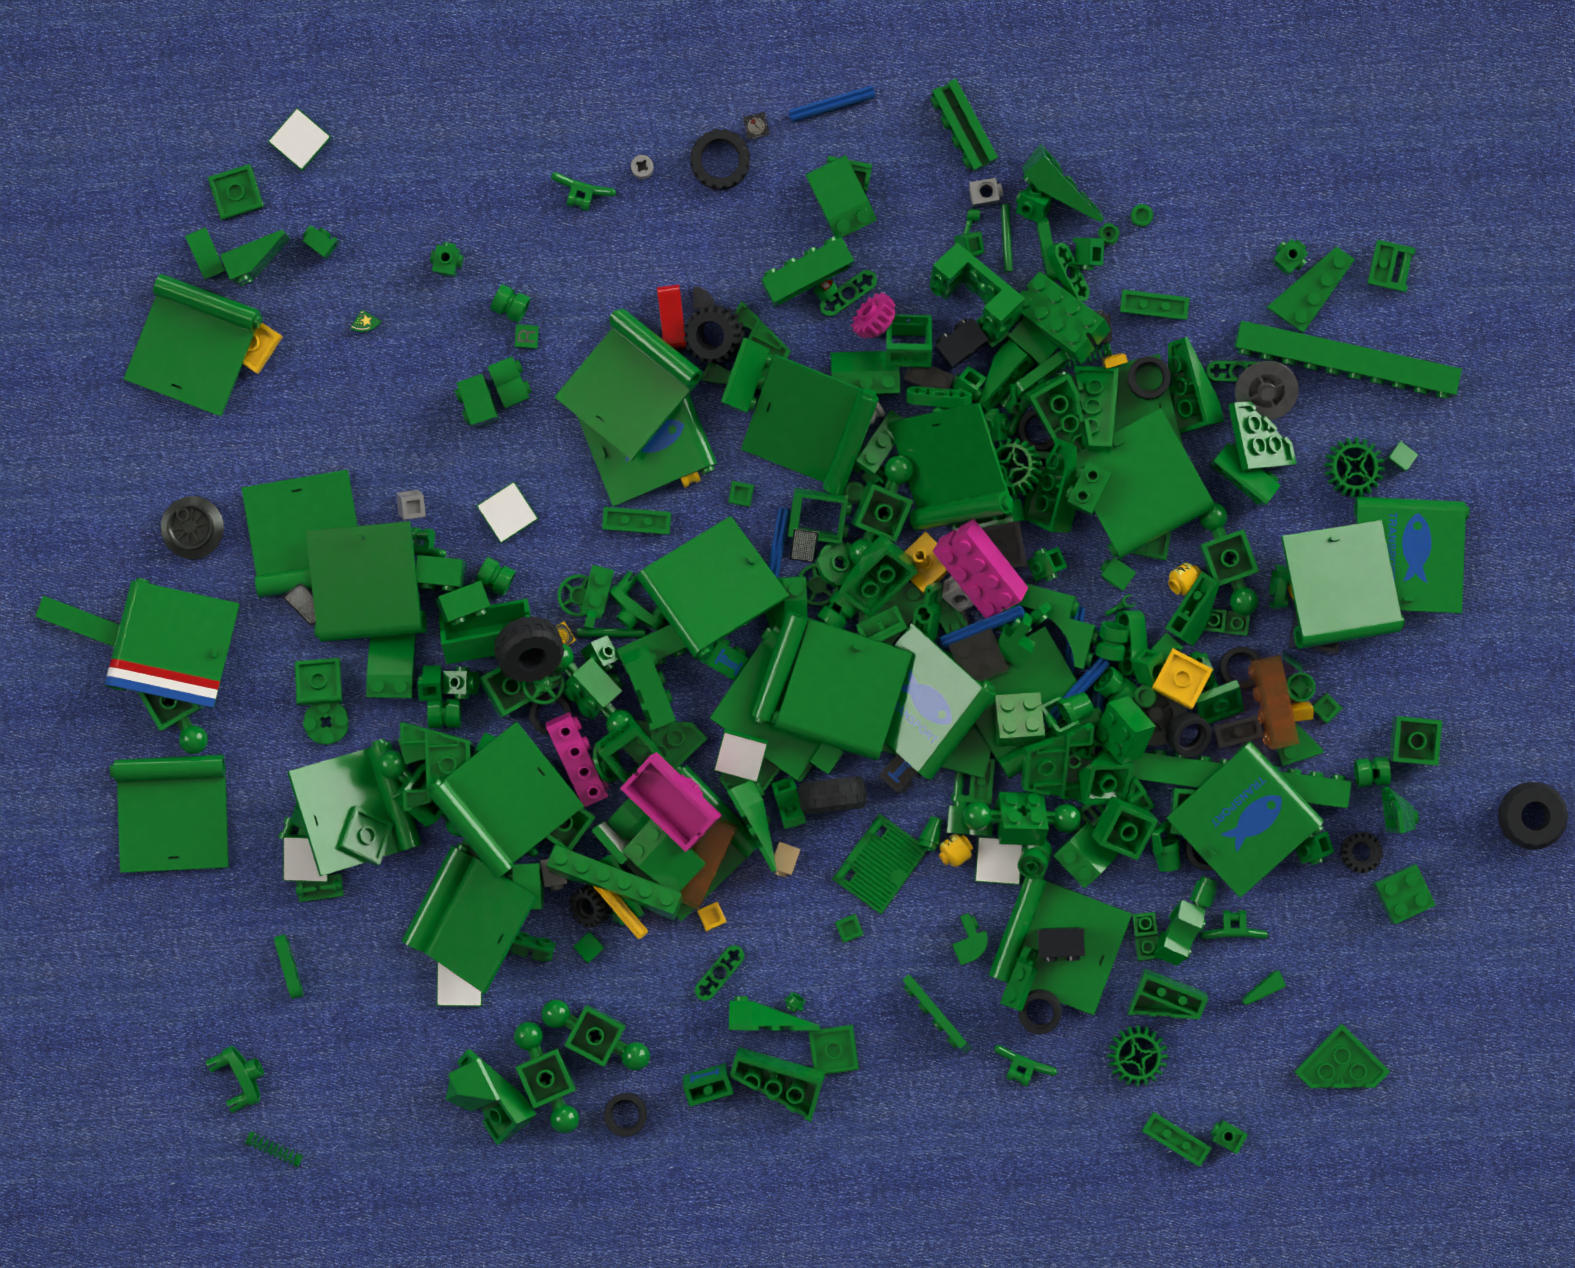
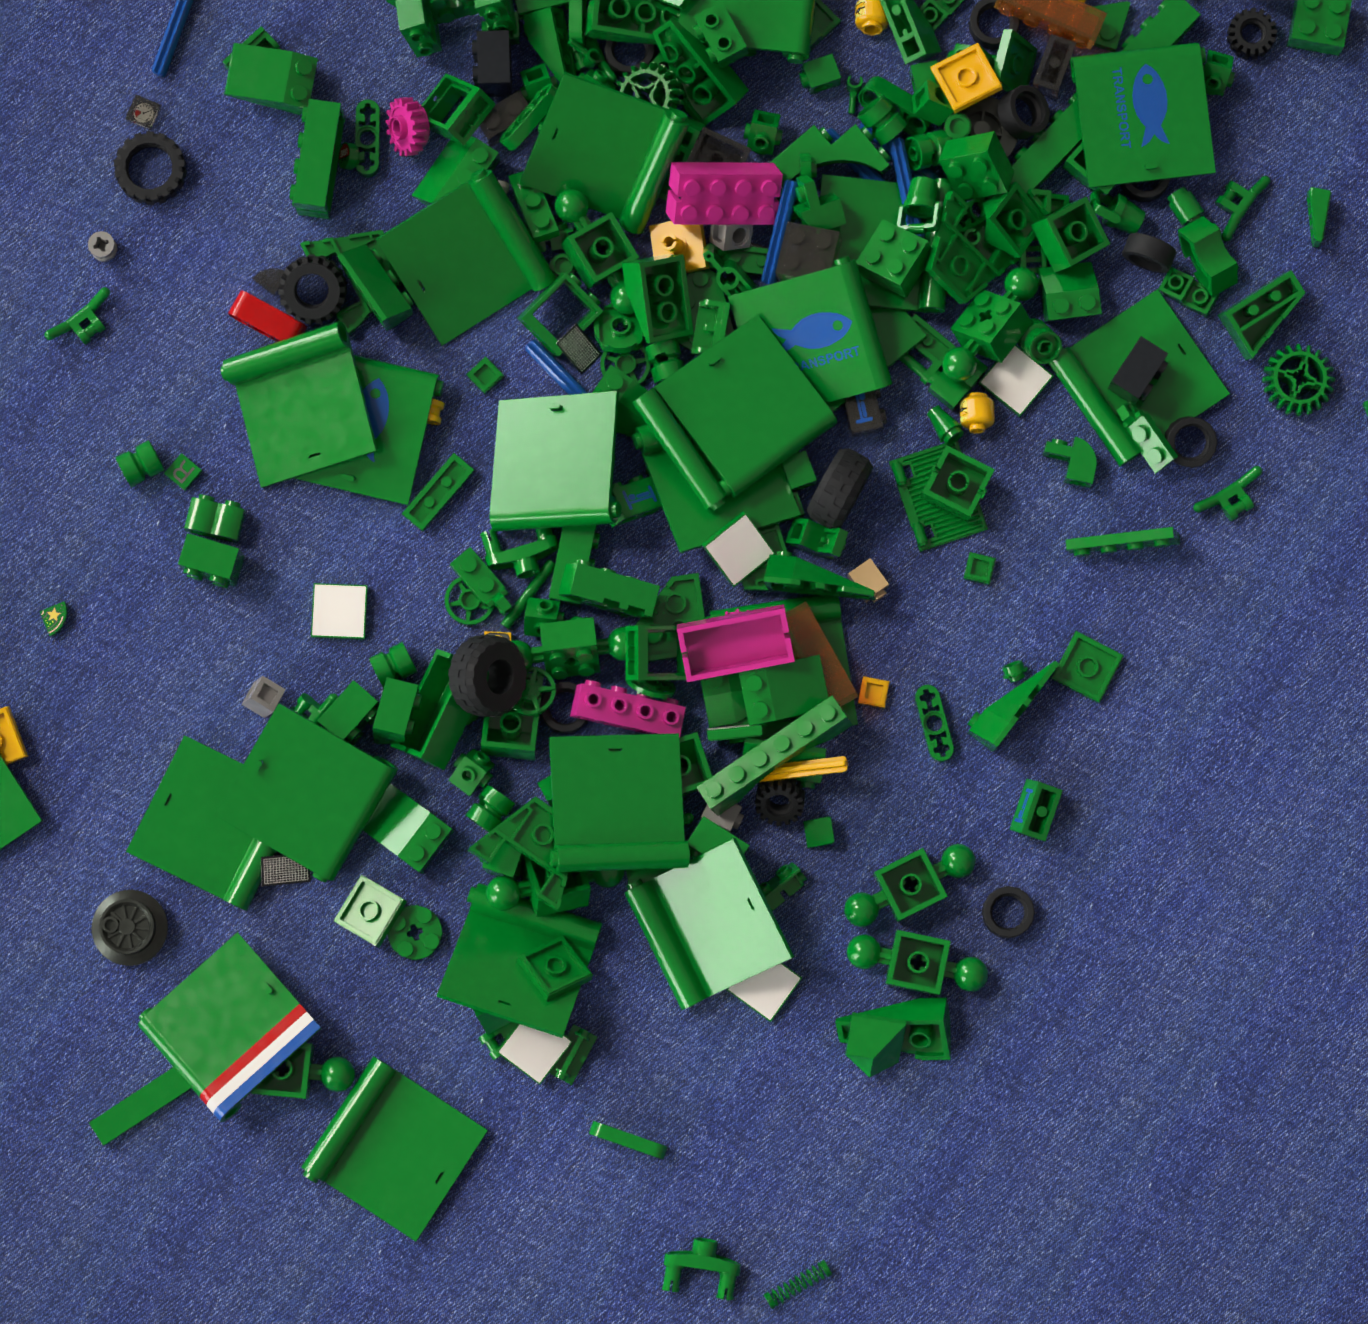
camera: 55 degrees left, 5 degrees down
(430, 683) = (451, 801): green brick -> none
(449, 267) = (56, 503): green brick -> none
(780, 1080) = (1081, 736): green wedge -> none
(894, 872) = (957, 483): none -> green brick
(1152, 890) = (1149, 252): none -> black tyre

